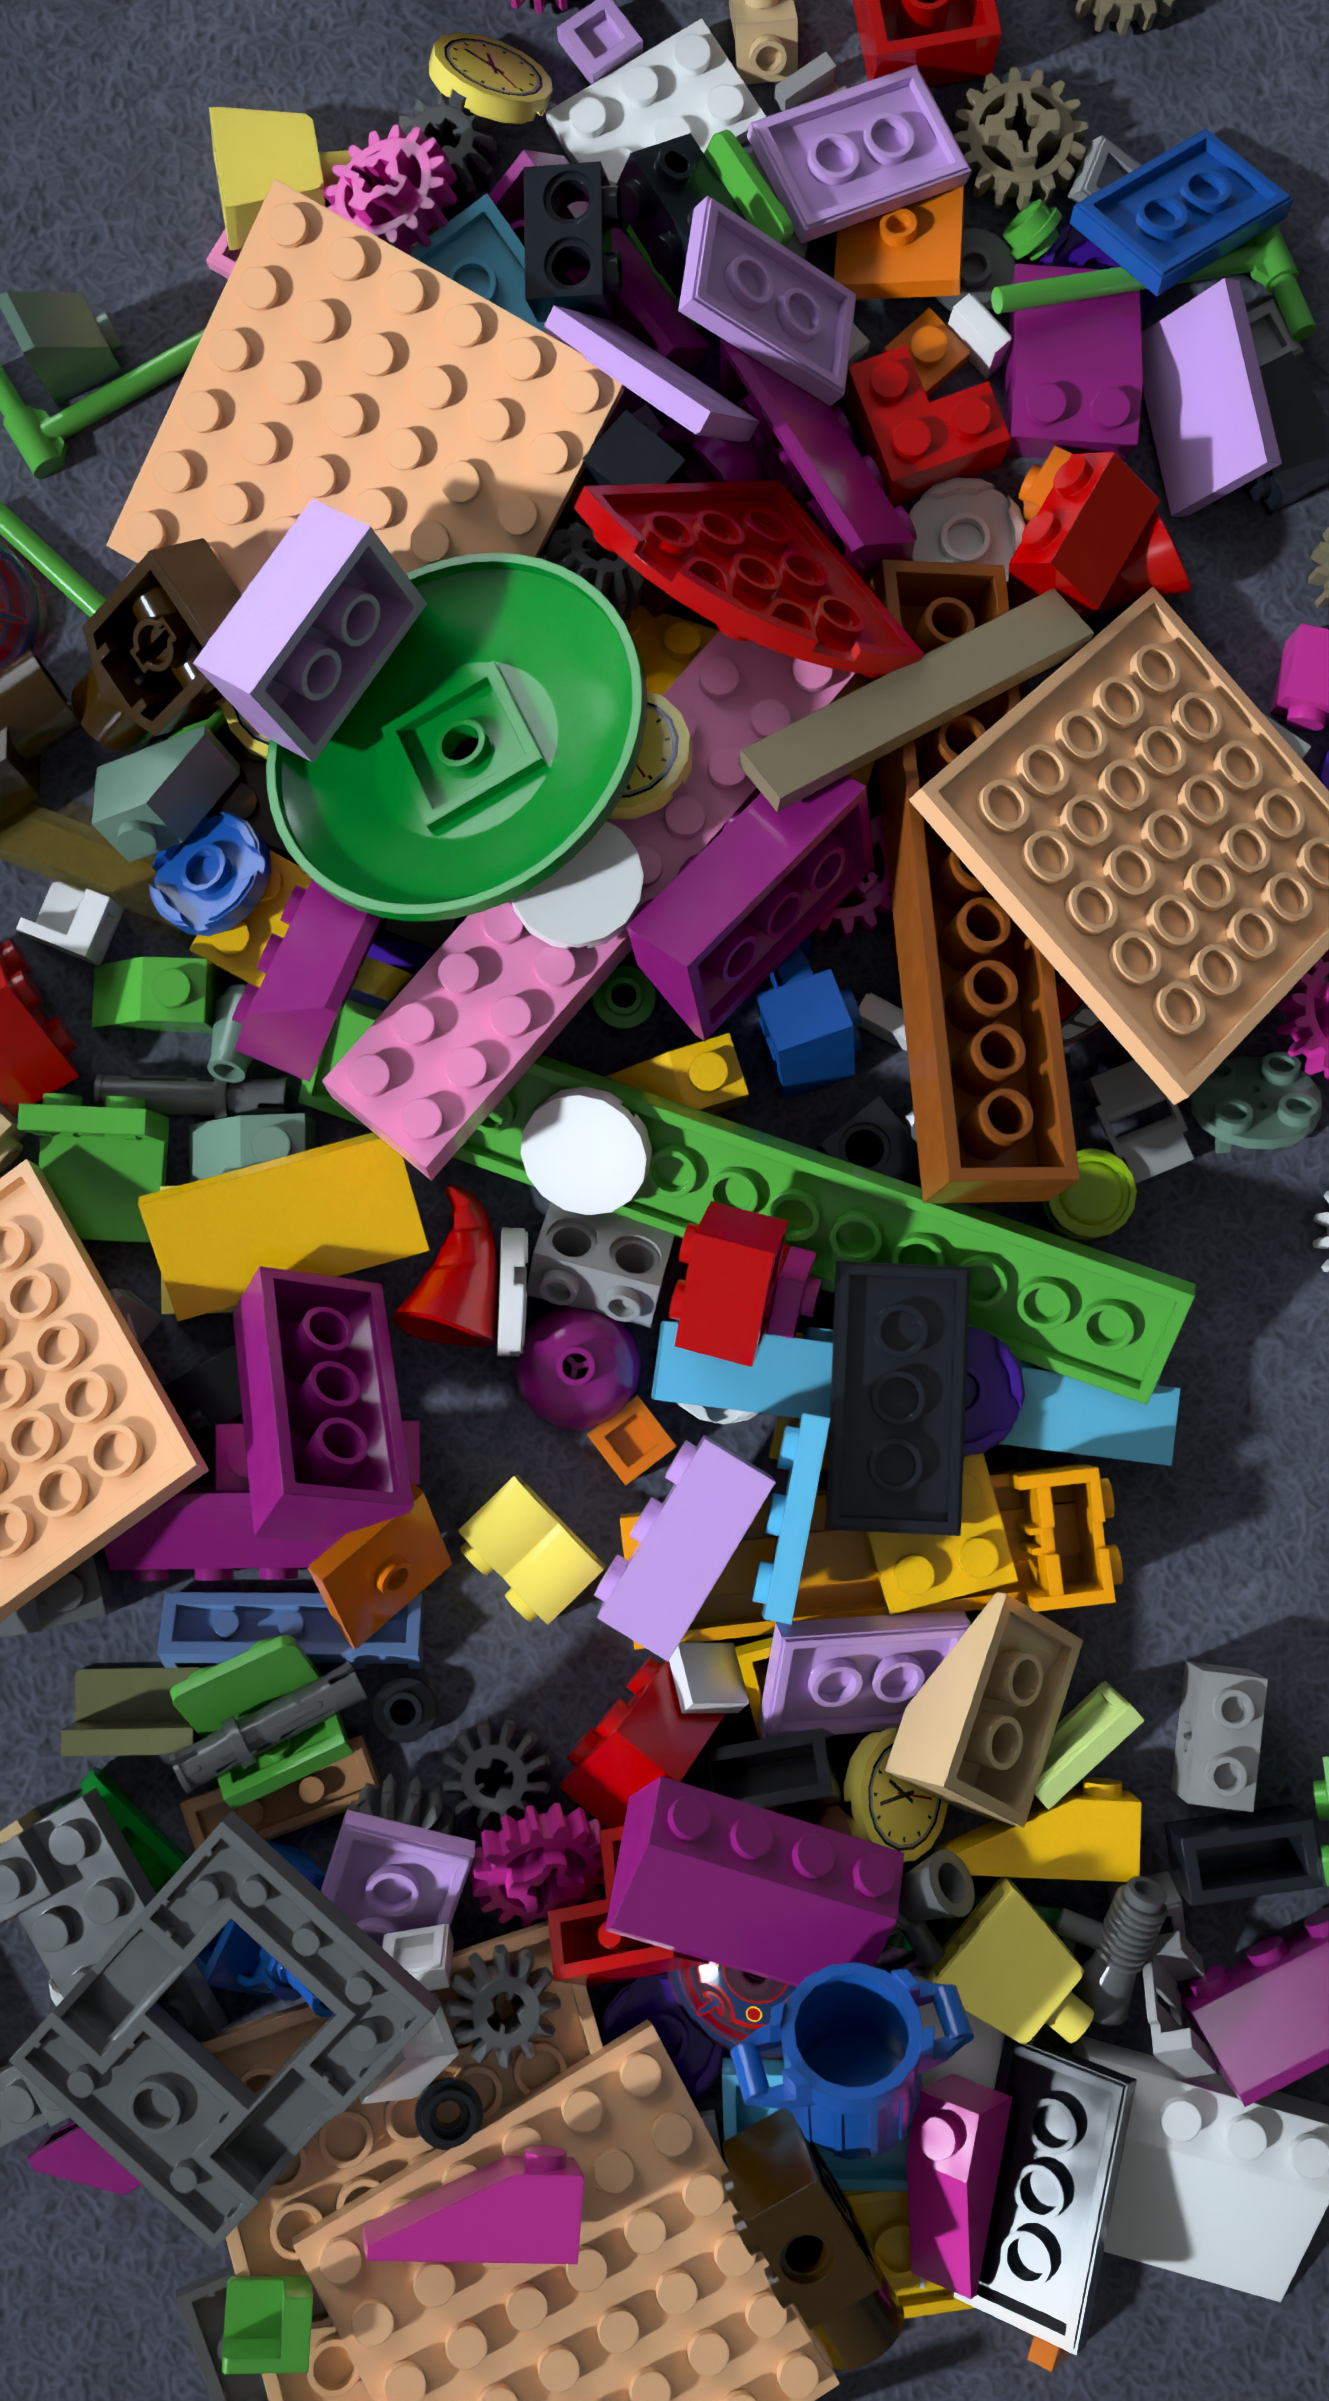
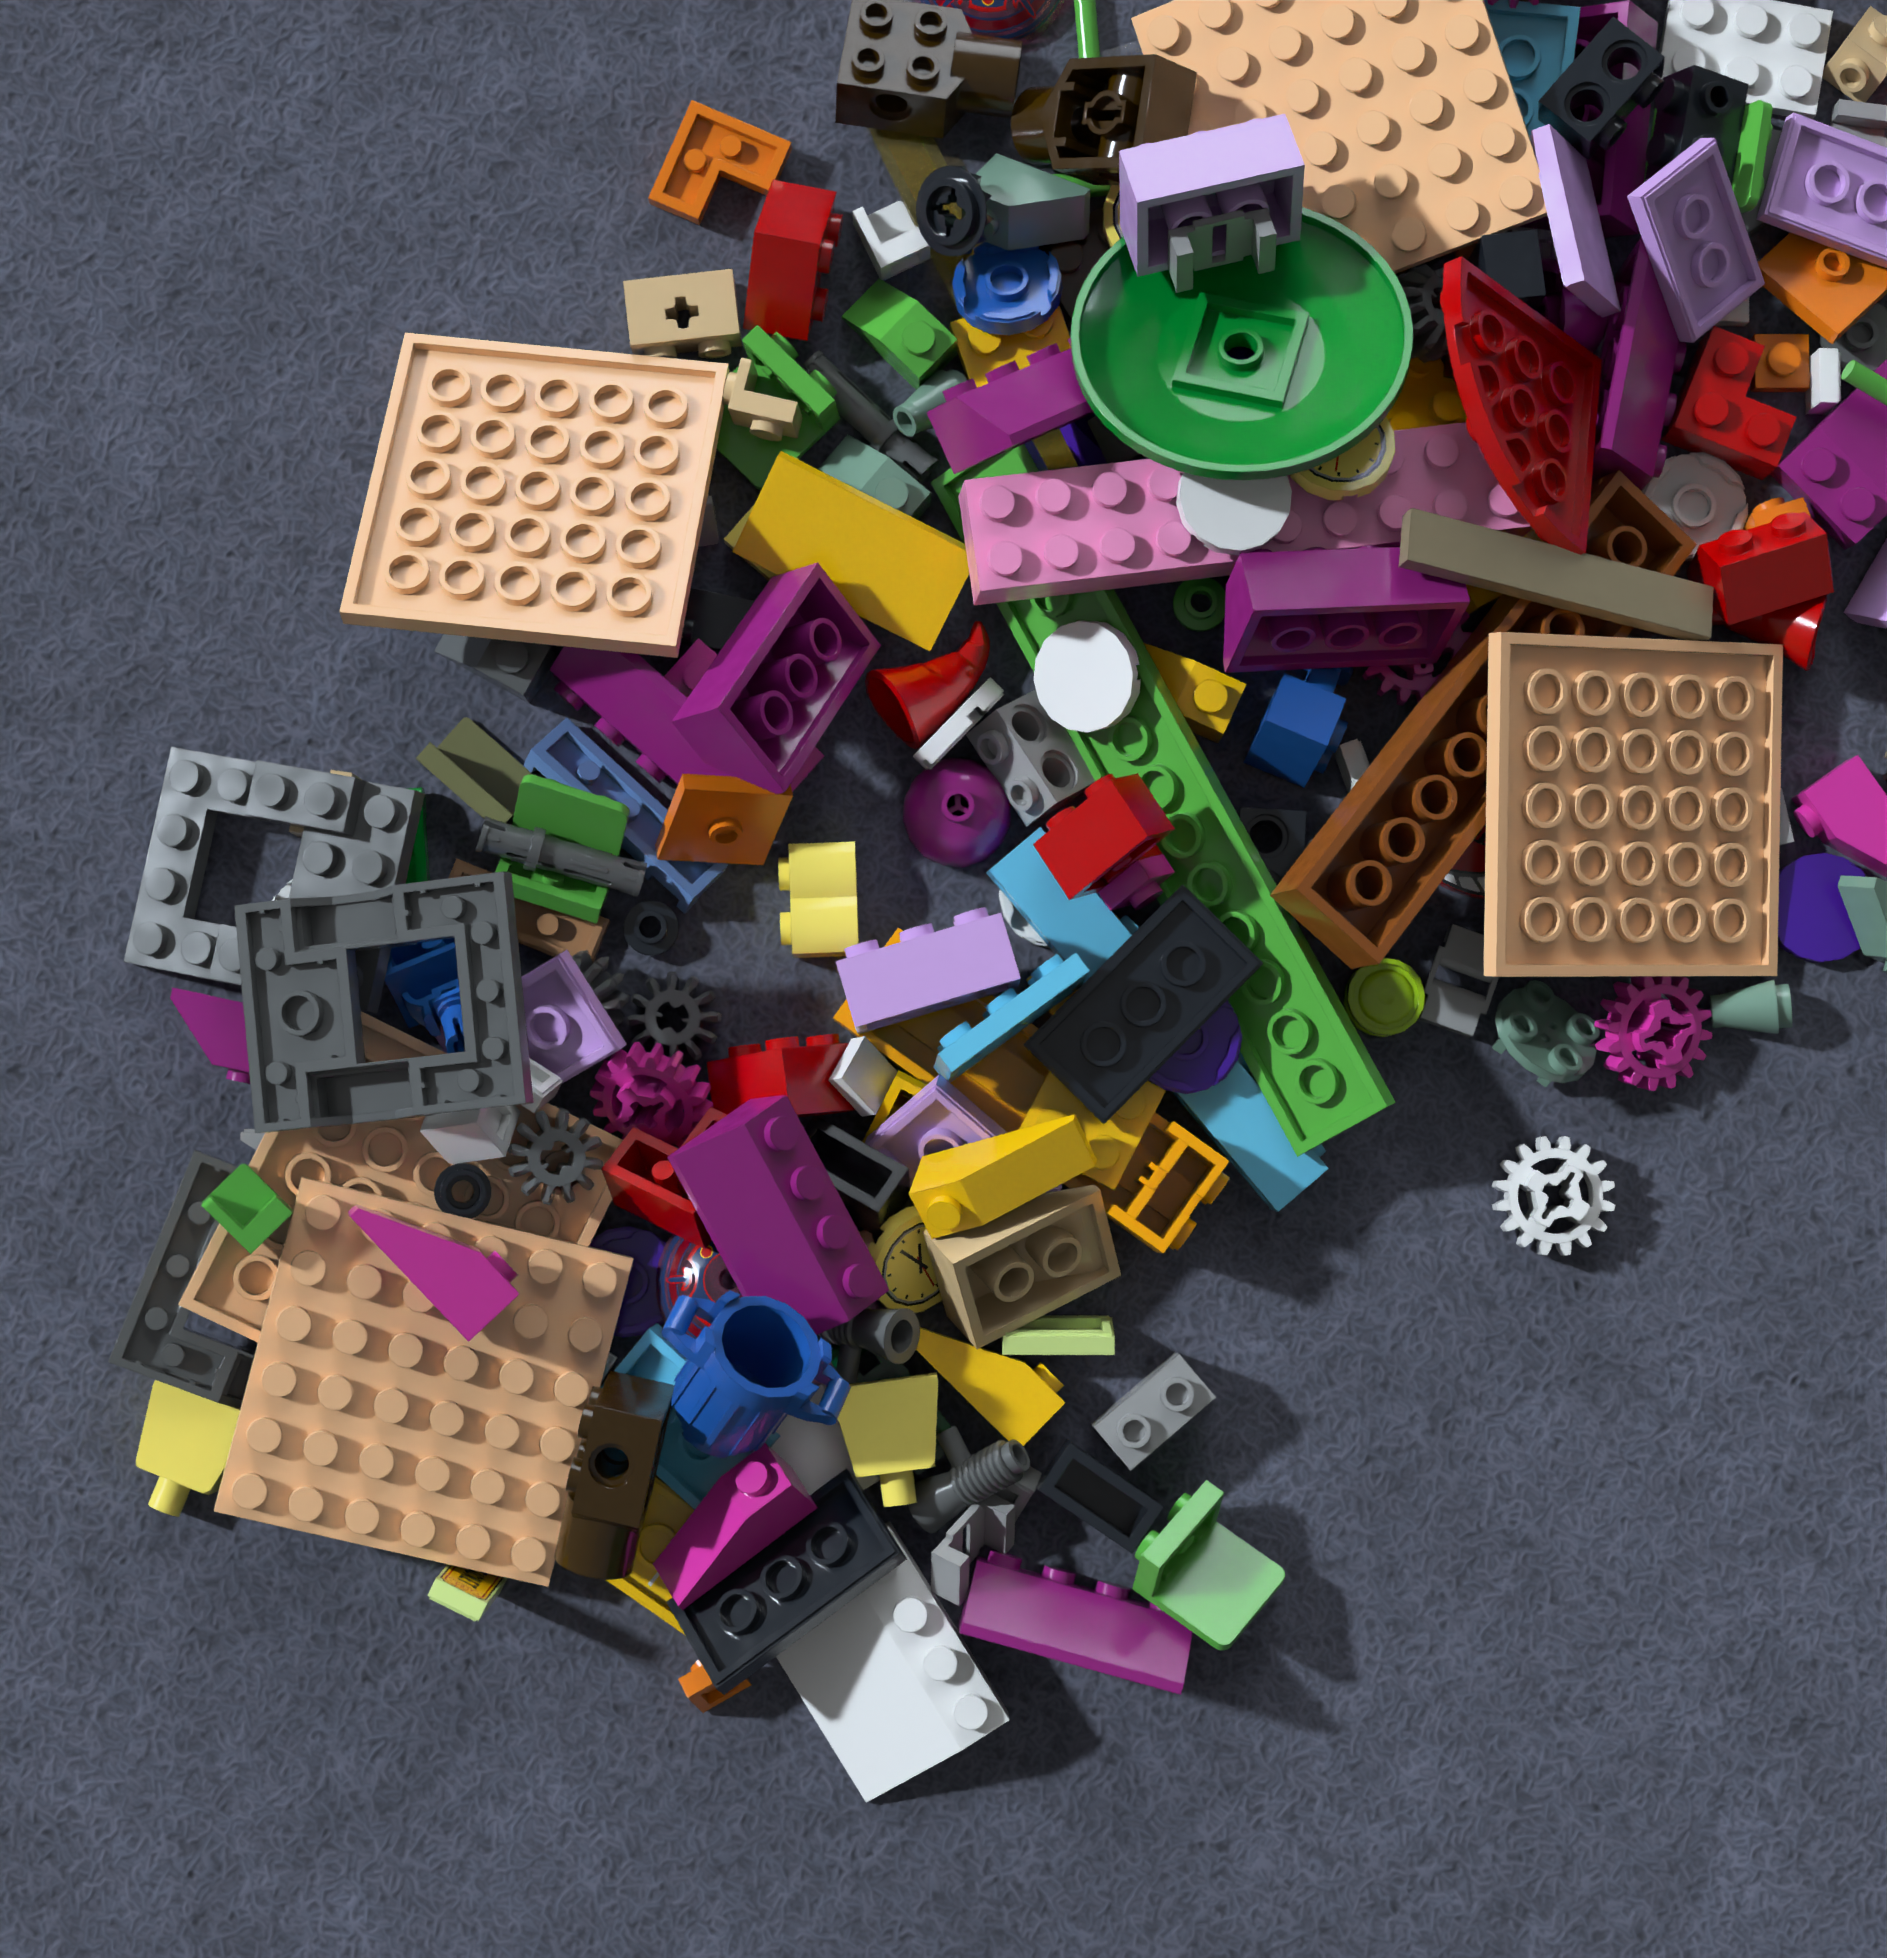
camera: 35 degrees right, 0 degrees up
(97, 1176) = (763, 414): none -> tan bracket
(104, 875) = (939, 226): none -> black gear
(376, 639) = (1245, 235): none -> light grey piece
(632, 1440) = (948, 888): orange plate -> none
(906, 1669) = (997, 1174): none -> yellow slope

